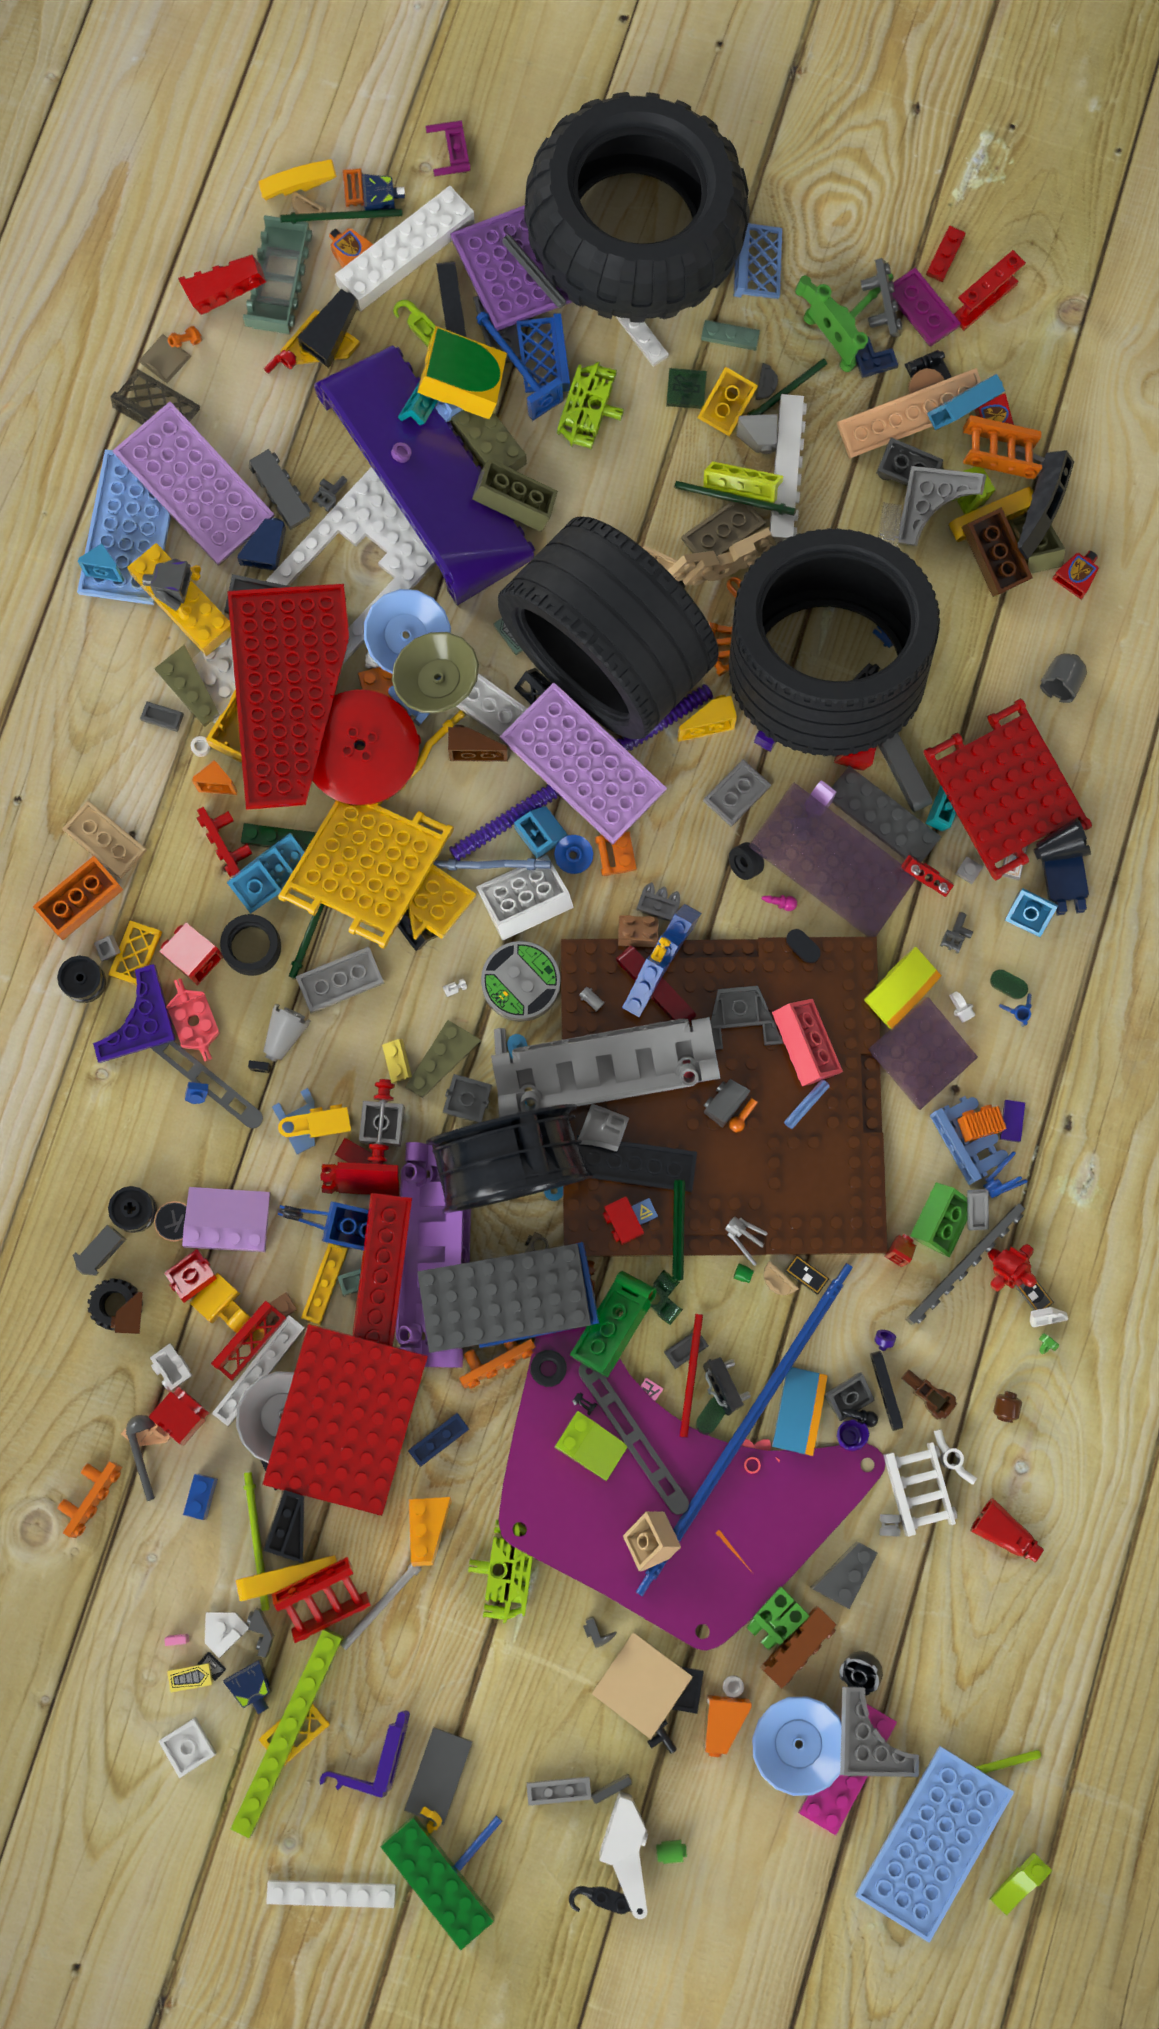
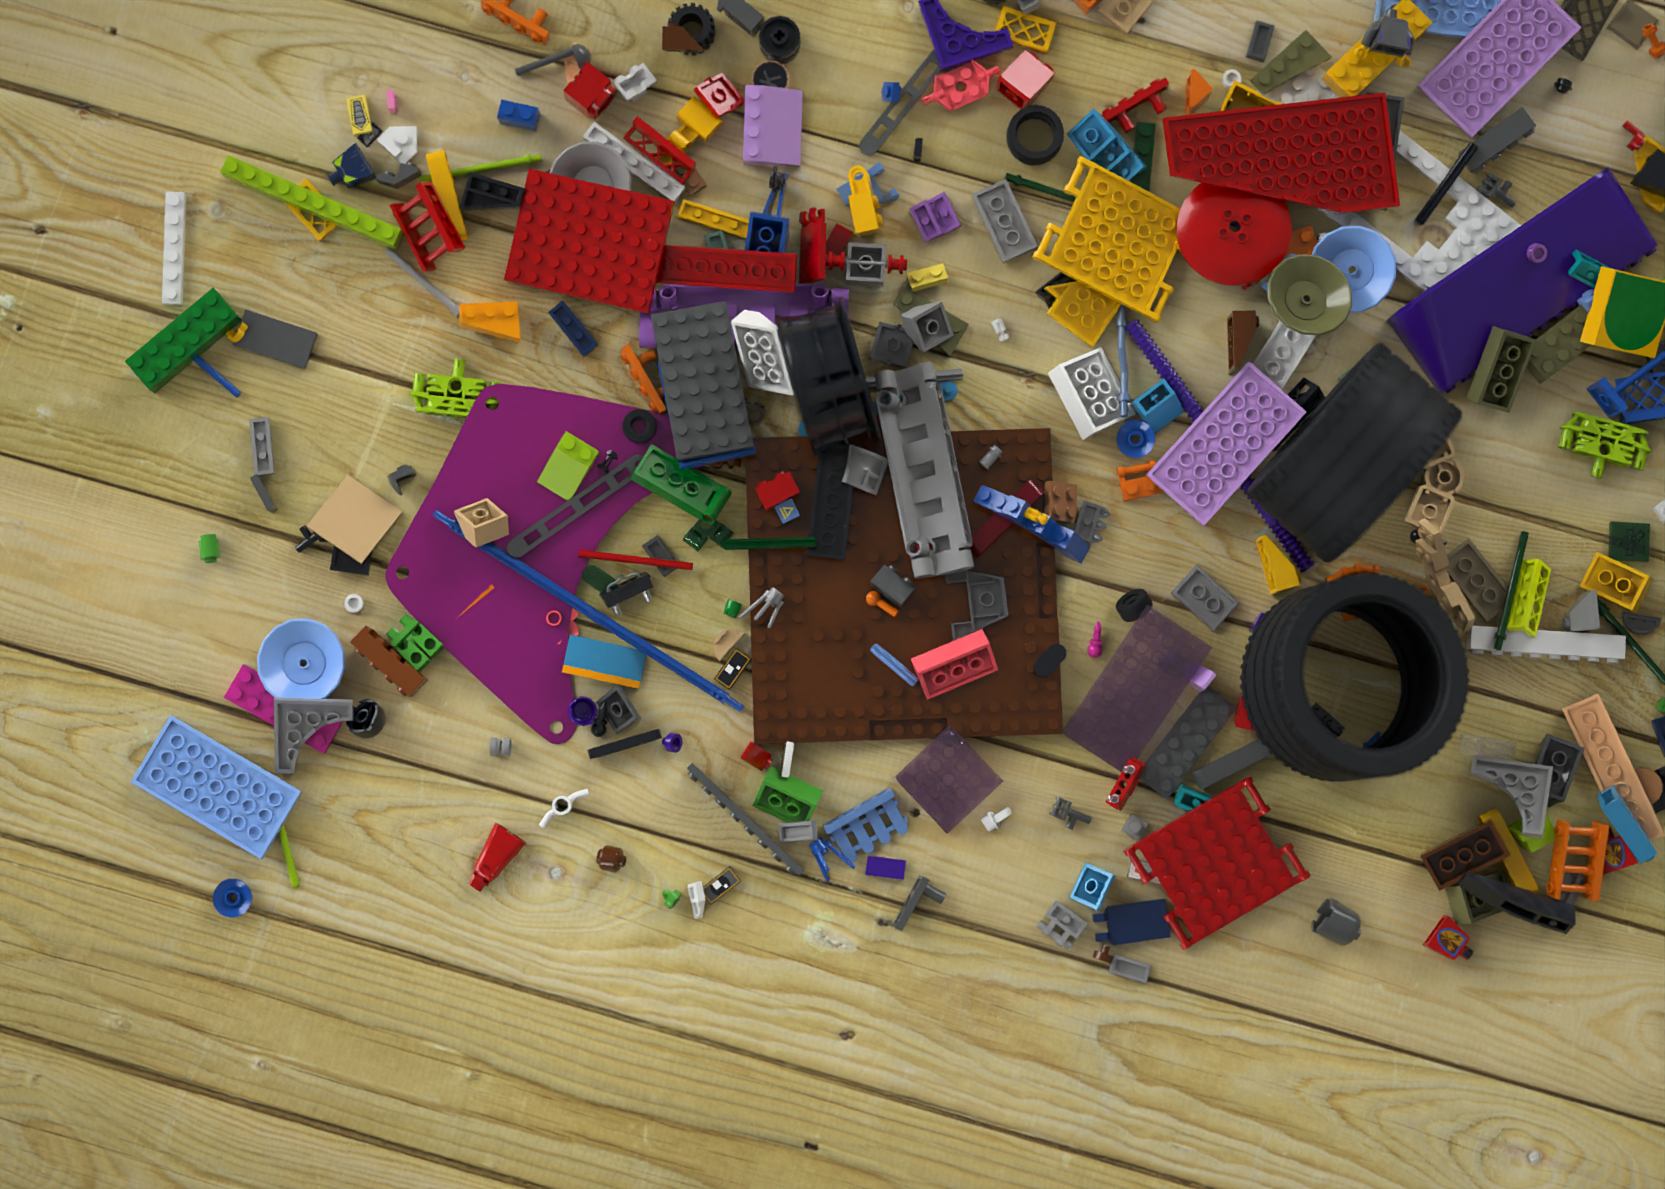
camera: 90 degrees right, 5 degrees up
(187, 1747) = (299, 116): white tile -> none
(225, 425) = (1563, 85): none -> black plate
(264, 546) = (1439, 130): dark blue slope -> none
(283, 1032) = (952, 170): light grey cone -> none
(321, 539) = (1446, 183): none -> black axle
(332, 1051) = (935, 217): none -> medium lavender slope
(387, 1765) = (285, 292): dark purple hinge -> none
(434, 739) = (1263, 315): yellow bar -> none
(449, 1061) = (927, 325): none -> light grey slope
(478, 1231) = (762, 353): none -> white slope
(520, 981) = (1008, 391): piece -> none
(621, 1849) = (208, 503): white slope -> none
(651, 1389) = (623, 524): bright pink tile -> none
(722, 1722) = (322, 590): orange slope -> none
(846, 1575) = (453, 705): dark grey wedge -> none
(902, 987) = (1012, 759): neon yellow slope -> none
(903, 1219) = (786, 759): none -> white tile
(905, 1503) = (520, 761): white fence -> none
(923, 1390) = (627, 779): reddish brown piece -> none
(981, 1123) = (880, 834): orange brick -> none
(1009, 984) = (1020, 865): clear green tile -> none
(1012, 1267) = (742, 863): red piece -> none
(1020, 1883) = (181, 866): lime slope -> none
(1021, 1012) = (990, 873): blue plant -> none
(1033, 1085) = (920, 887): none -> dark grey piece
(1062, 1832) = (222, 898): none -> blue dish
(1063, 843) = (1162, 918): black cone -> none
(1063, 941) = (1066, 920): none -> light grey plate
(1099, 905) = (1103, 955): none -> reddish brown tile
(1111, 880) = (1129, 968): none -> light grey tile

